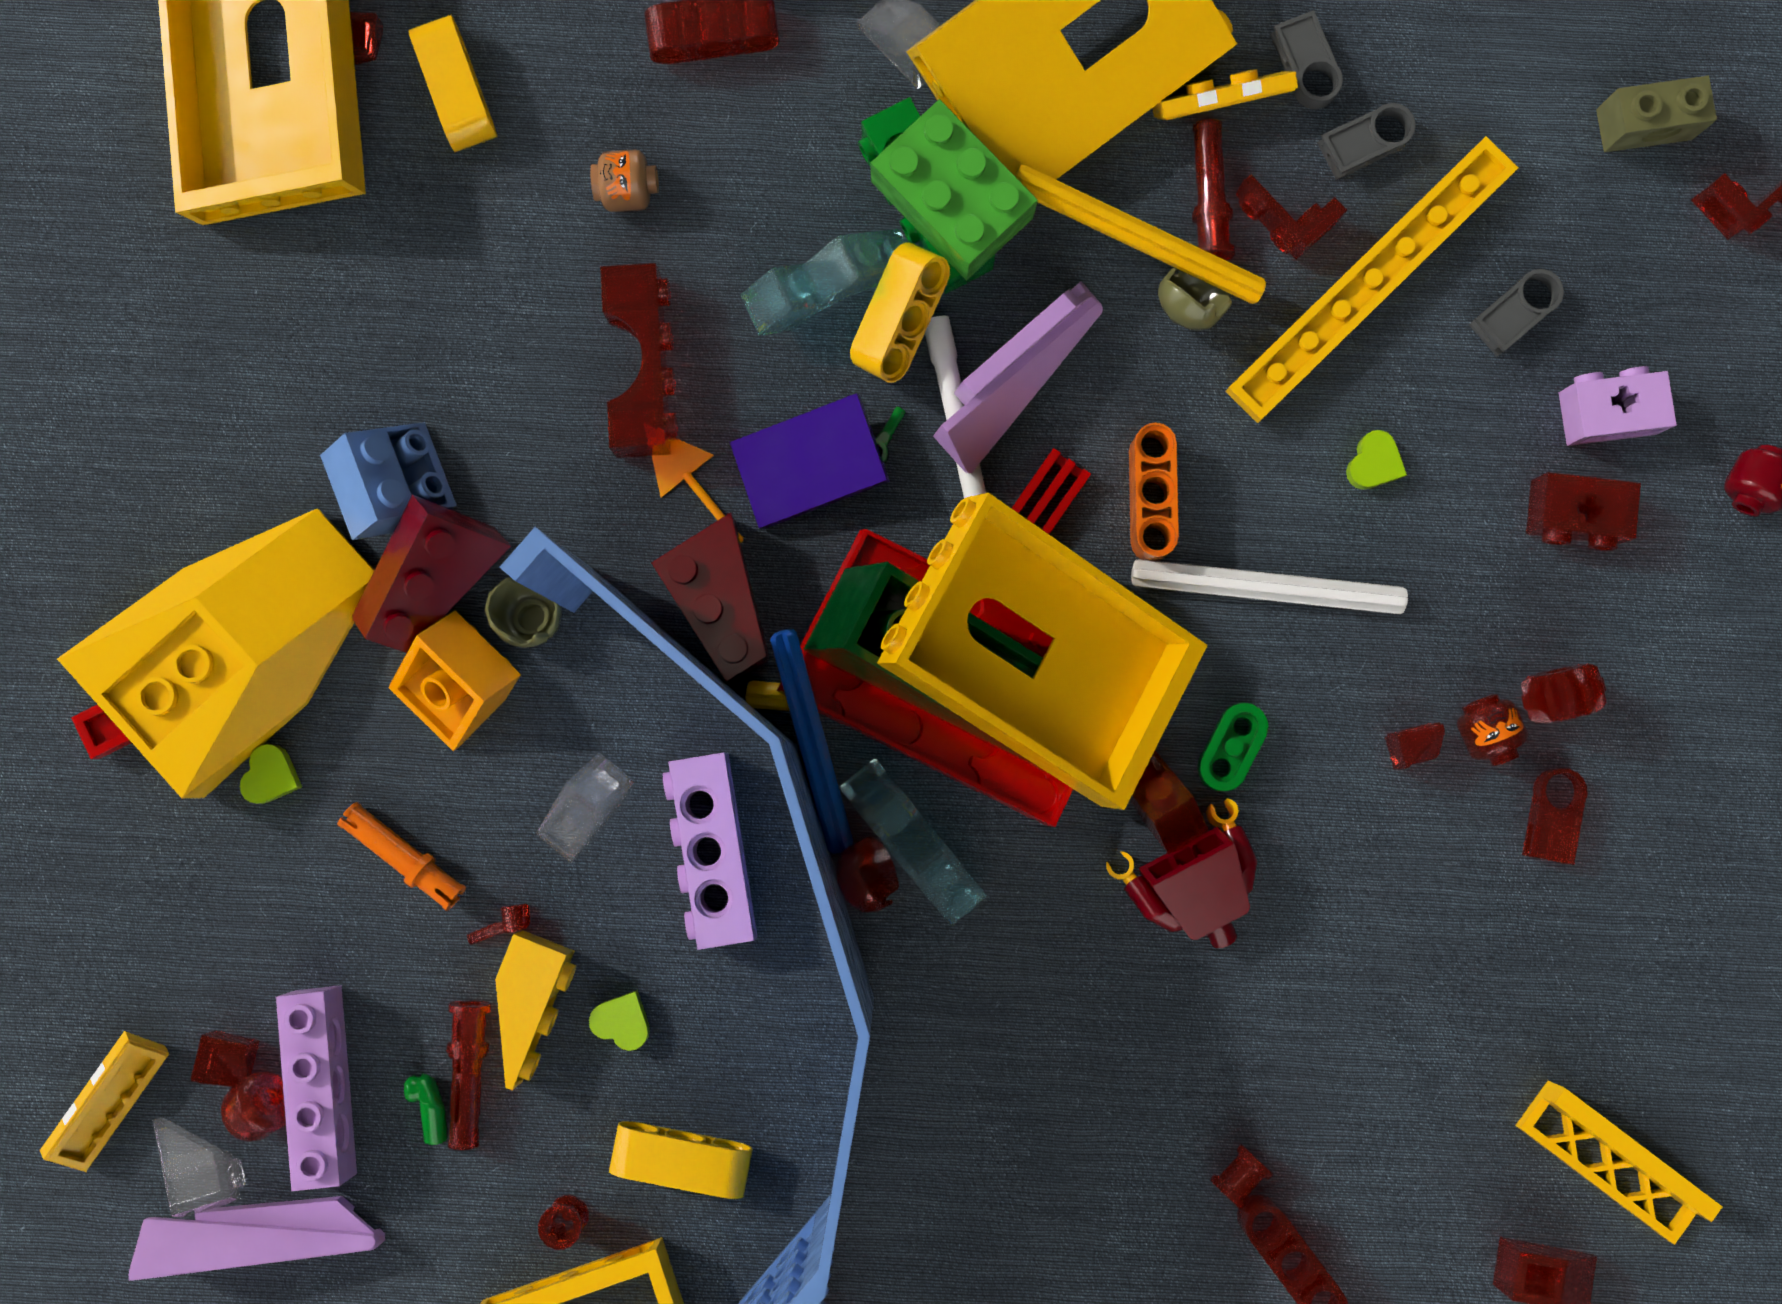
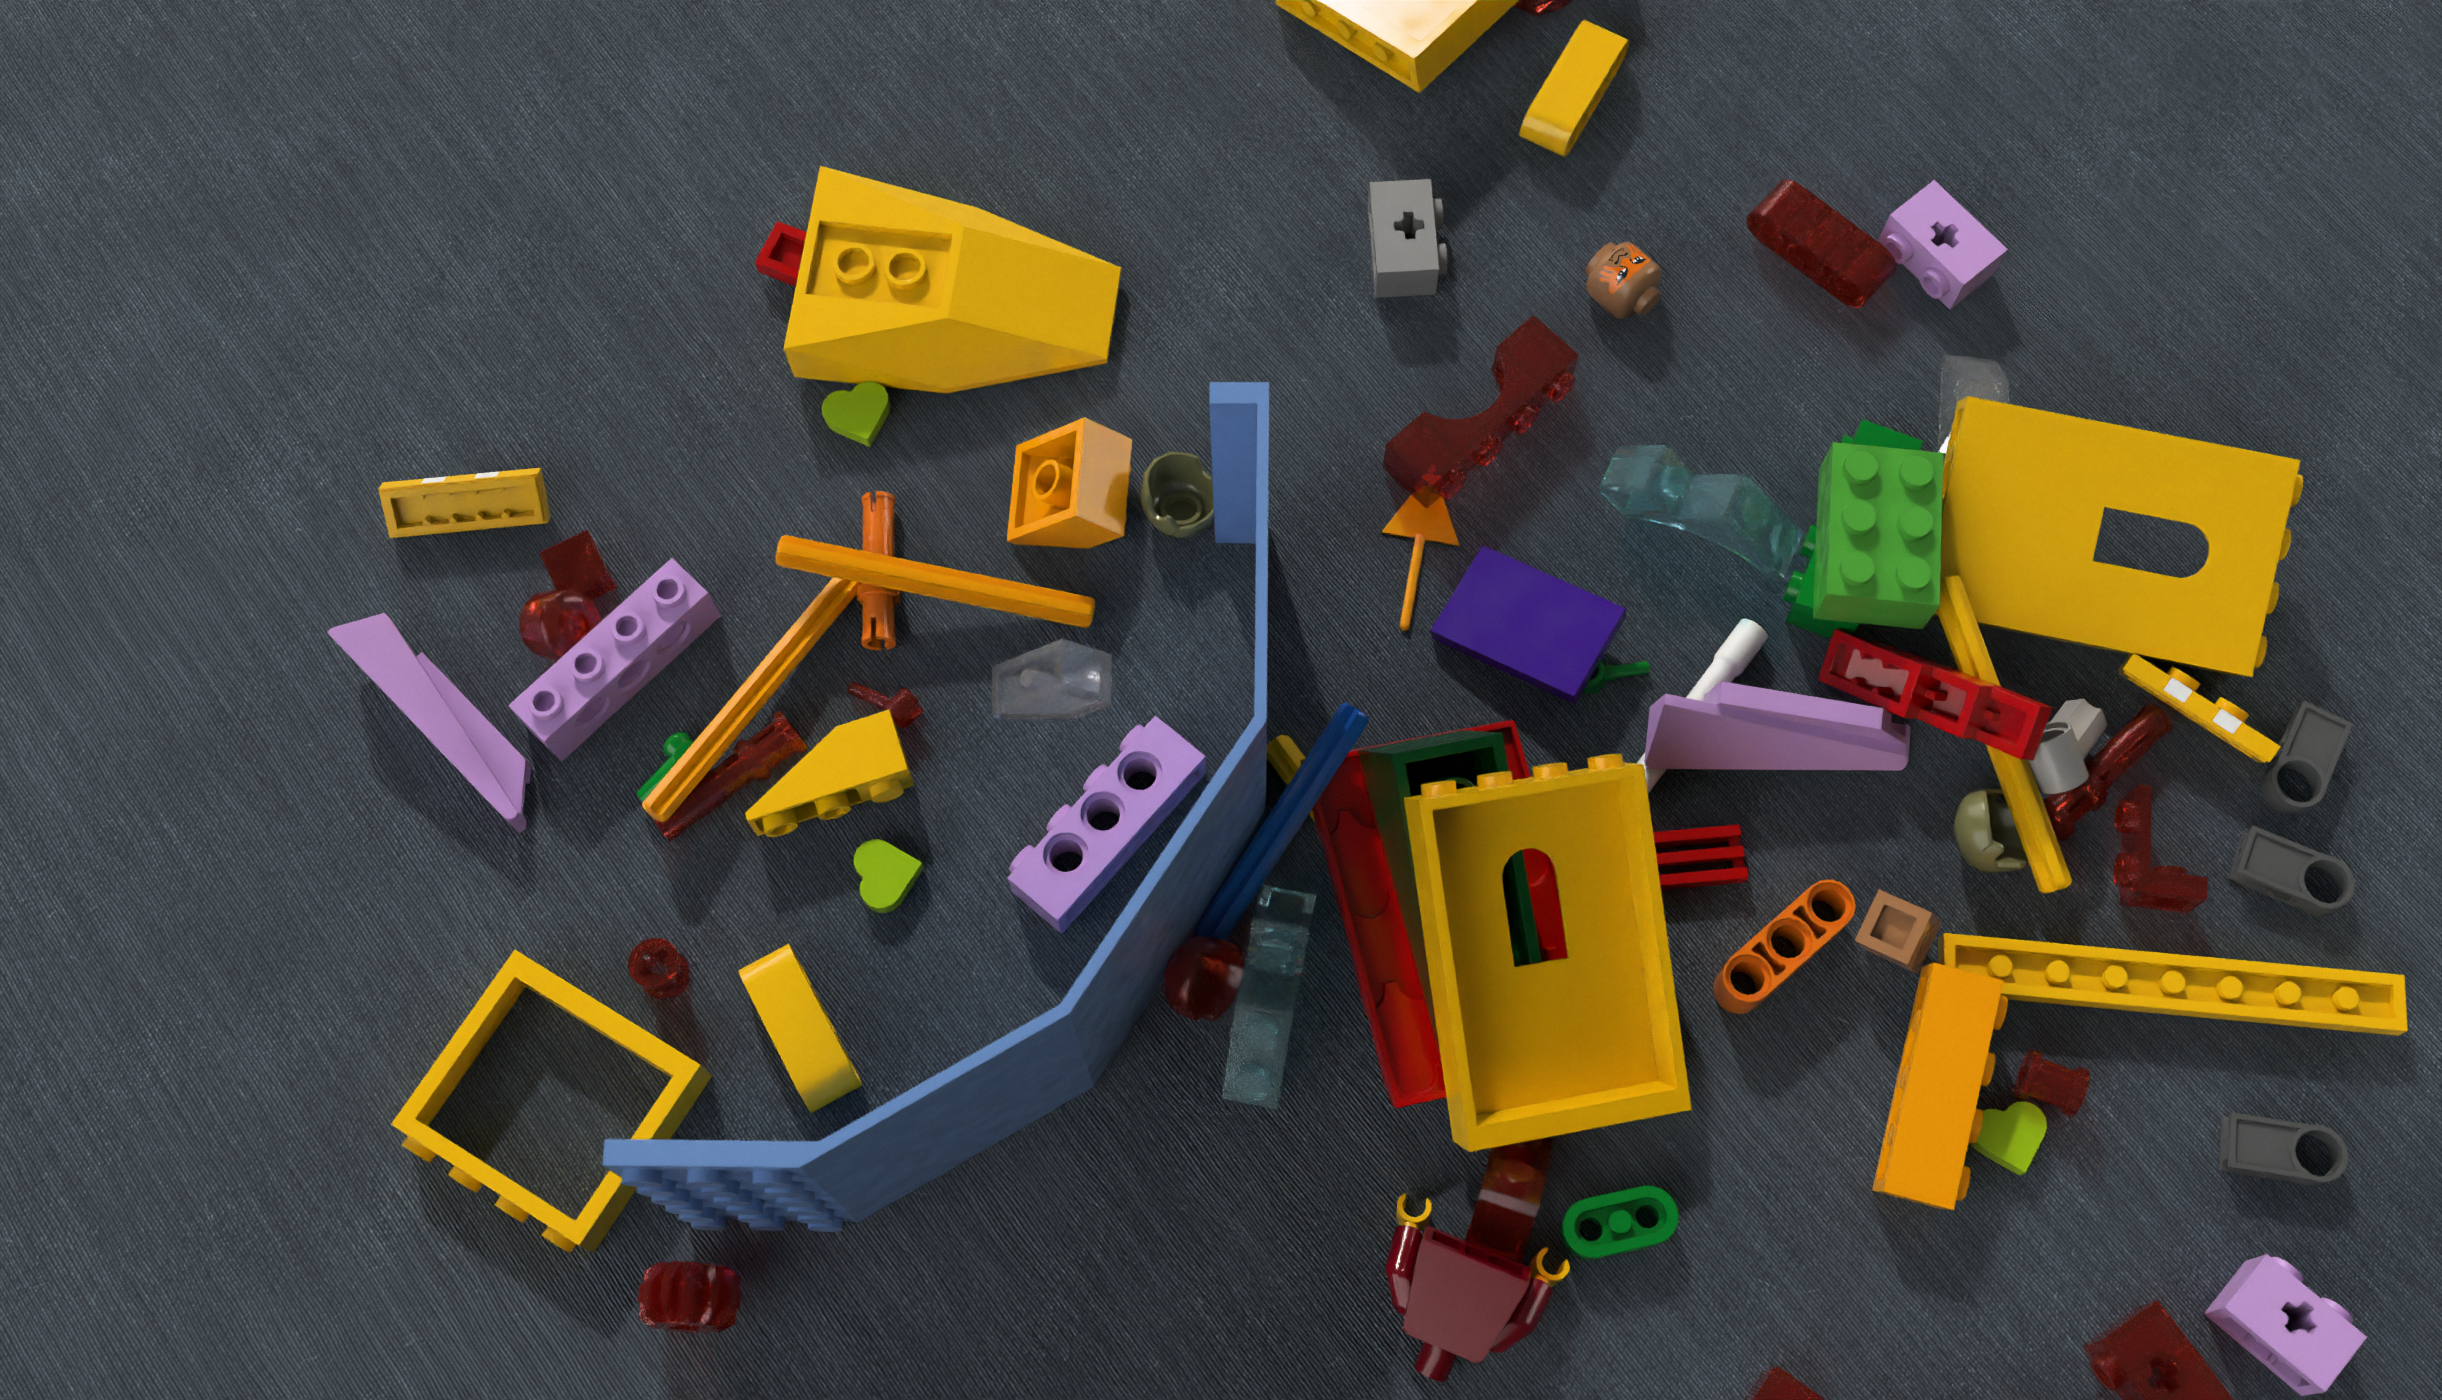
camera: 50 degrees right, 15 degrees down
(195, 1170) = (461, 621): clear slope -> none
(378, 474) = (1195, 300): medium blue slope -> none
(422, 1013) = (749, 699): none -> light orange axle
(424, 572) = (1140, 385): dark red wedge -> none
(443, 282) = (1401, 212): none -> light grey brick
(444, 829) = (935, 581): none -> light orange axle
(716, 597) = (1337, 642): dark red wedge -> none
(900, 312) = (1755, 582): yellow beam -> none
(1081, 252) = (1935, 694): none -> red slope
(1179, 202) = (2065, 745): none -> light grey piece
(1206, 416) = (1898, 931): none -> medium nougat brick
(1269, 586) = (1801, 1134): white axle -> none
(1319, 480) = (1939, 1086): none -> light orange brick
(1369, 408) = (2051, 1083): none -> clear red bush

